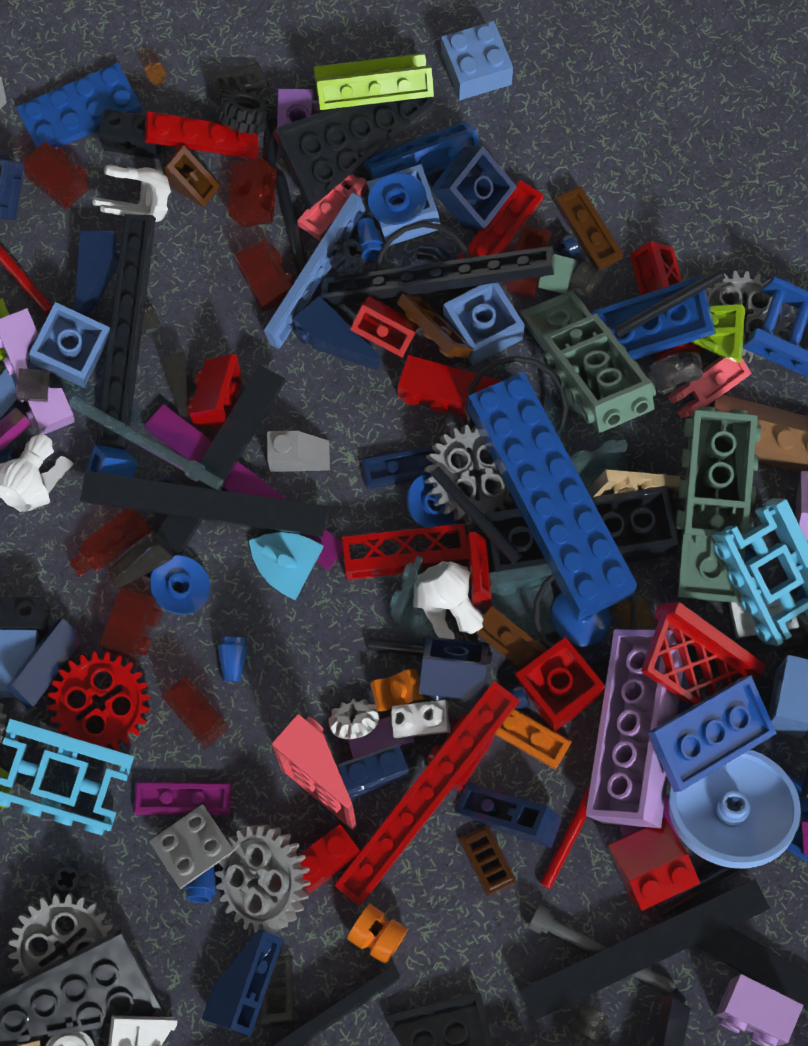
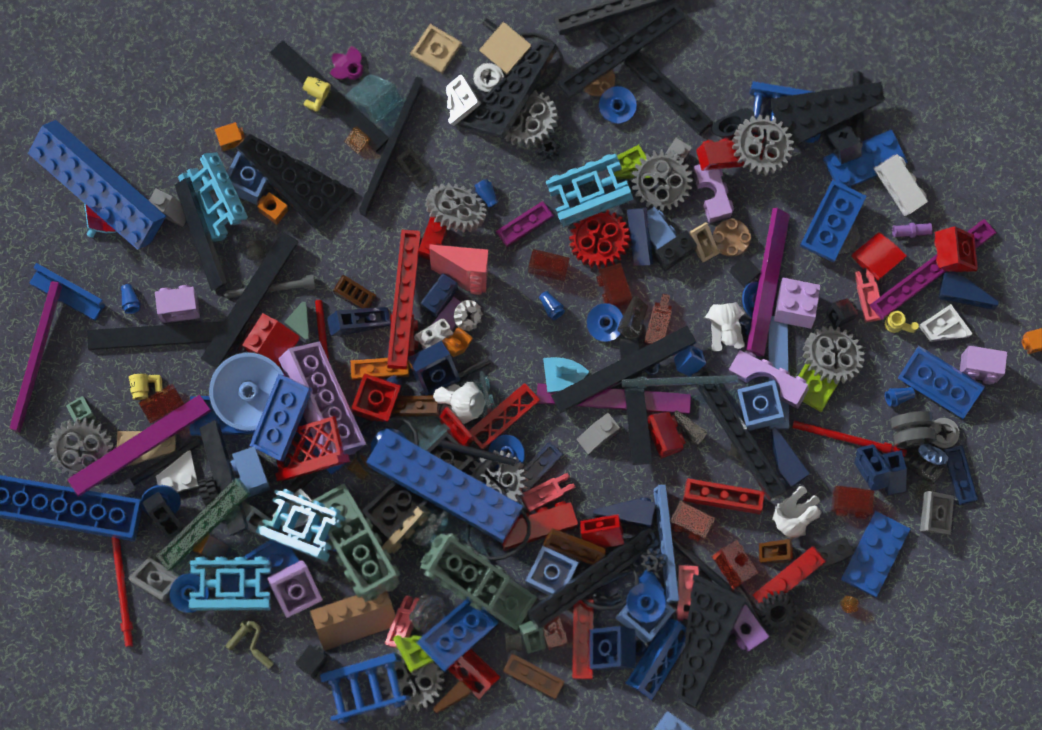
camera: 140 degrees right, 5 degrees up
(33, 385) = (759, 367): clear smoke tile -> none
(191, 846) = (501, 201): light grey hinge -> none
(204, 274) = (723, 496): none -> red brick
(242, 987) = (429, 154): dark blue slope -> none
(373, 81) = (707, 667): lime fence -> none
(387, 941) = (376, 222): orange wheel -> none
(415, 423) = (546, 493): none -> coral hinge
(567, 246) = (537, 658): dark blue hinge -> none
(595, 869) = (299, 322): none -> sand green slope
(669, 302) = (453, 643): black bar -> none
(701, 263) = (458, 693): none -> reddish brown slope

